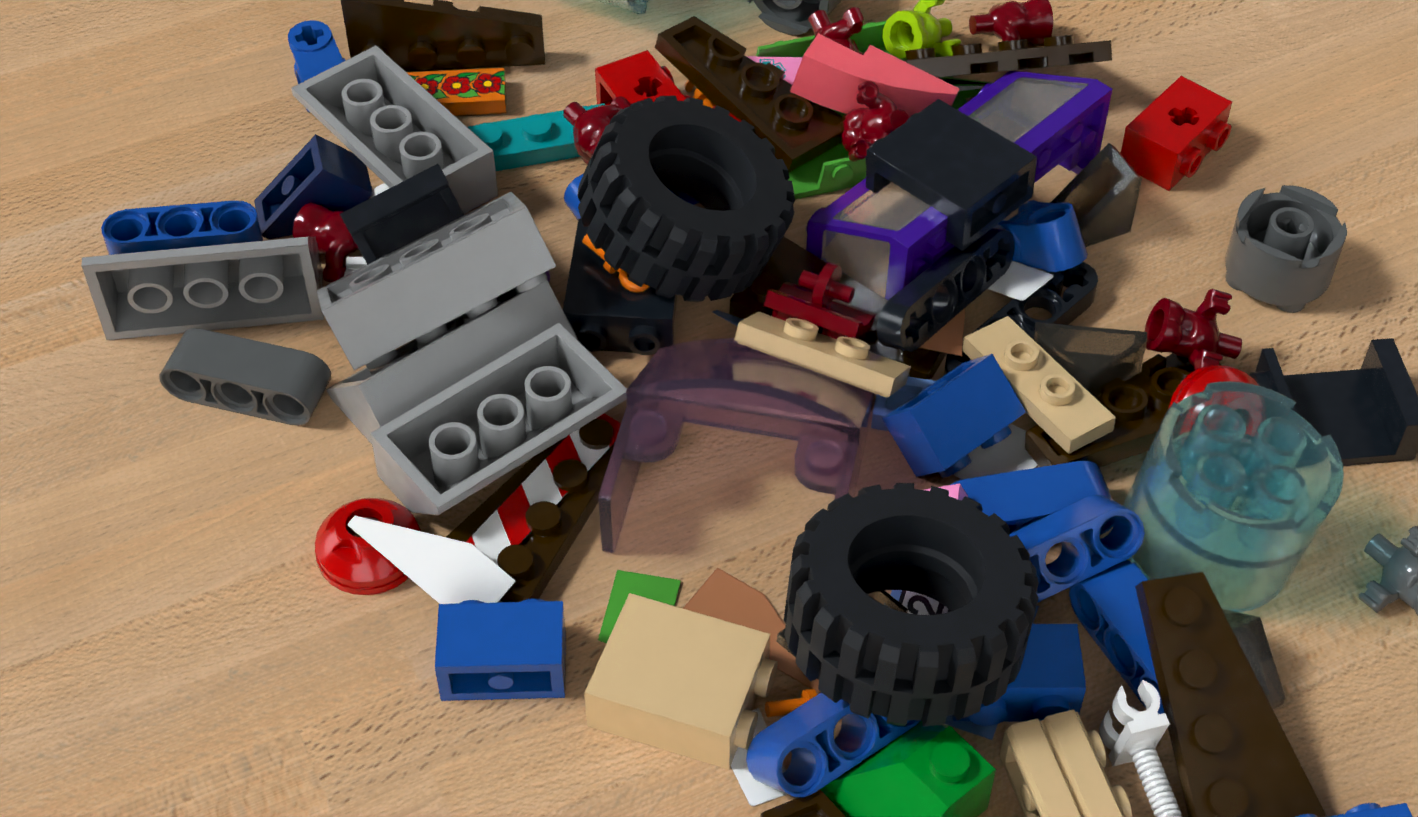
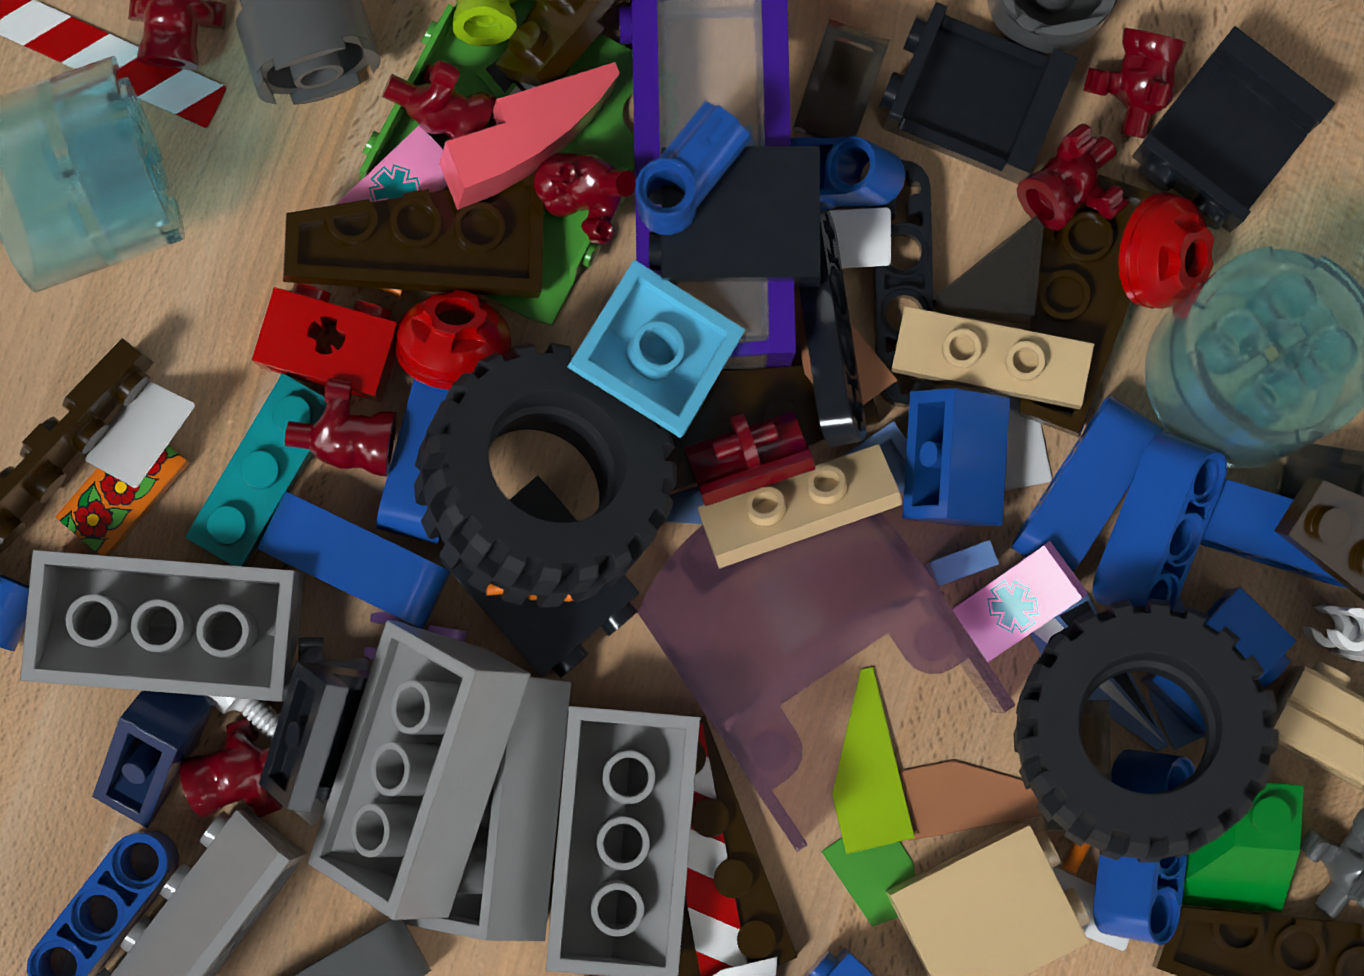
camera: 50 degrees left, 35 degrees up
(498, 64) = (140, 434): none -> white sticker
(530, 178) = (354, 560): none -> blue beam
(689, 562) = (867, 780): none -> lime sticker
(825, 183) = (656, 348): none -> medium azure slope
(890, 467) = (962, 563): none -> medium blue tile
(924, 99) = (692, 165): none -> blue piece
(1168, 257) = (975, 95): none -> black panel
(1306, 338) = (1144, 80): none -> dark red piece

